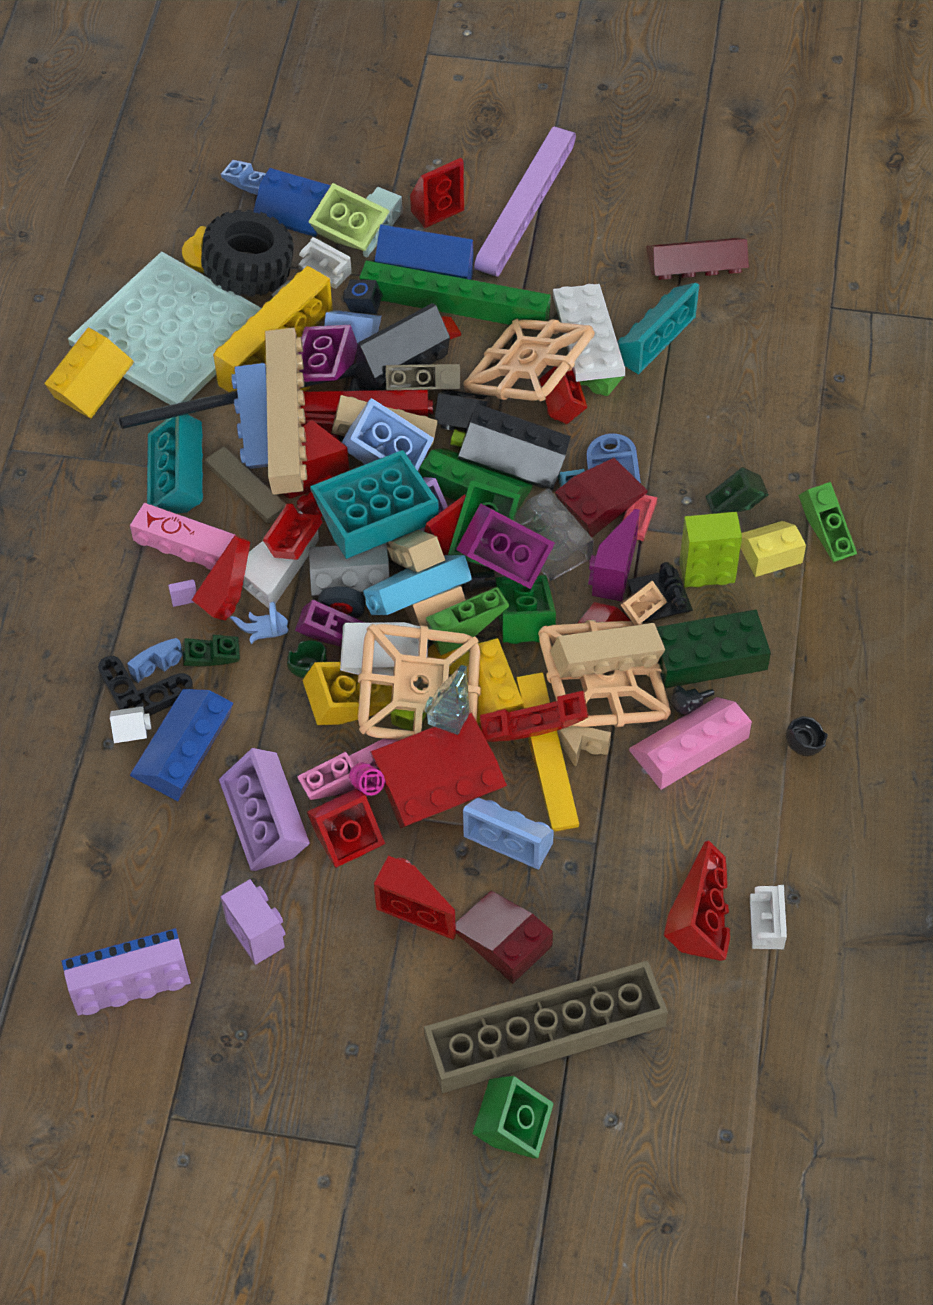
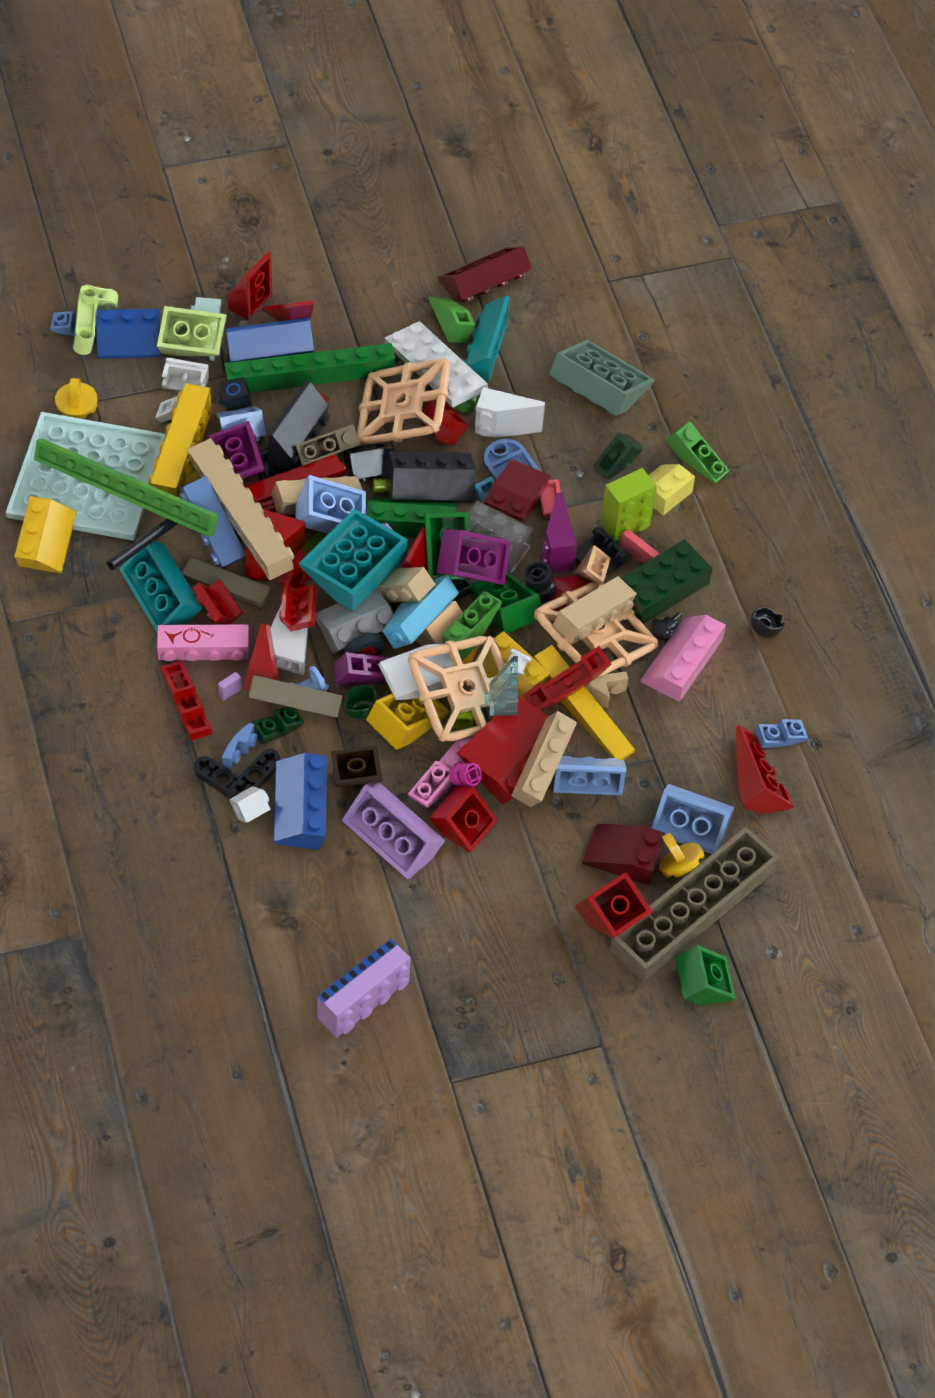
camera: 30 degrees left, 0 degrees up
(132, 592) = (186, 700): none -> red slope
(188, 352) = (126, 487): none -> bright green plate
(220, 501) = (218, 602): none -> red bracket
(240, 627) = (295, 696): none -> dark tan tile
(243, 272) = (117, 406): black tyre -> none
(253, 921) = (438, 913): lavender slope -> none
(258, 727) = (356, 766): none -> dark brown slope
(272, 156) = (89, 301): none -> yellowish green piece
(409, 896) = (550, 849): red slope -> none
(444, 993) = (614, 907): none -> red slope
(456, 794) = (544, 759): none -> tan brick
(463, 228) = (290, 310): none -> red wedge
(487, 677) = (522, 660): none -> white brick
(525, 202) = (321, 270): lavender beam -> none
(555, 967) = (681, 858): none -> yellow tile
(570, 600) = (540, 579): none -> black wheel
(598, 926) = (692, 818): none -> light blue slope
(633, 409) = (507, 414): none -> white slope
(634, 292) = (453, 318): none -> bright green slope
(702, 599) = (637, 547): none -> coral tile
(756, 870) = (782, 734): none -> medium blue slope
(764, 403) = (600, 377): none -> sand green slope
(768, 917) = (808, 764): white hinge -> none

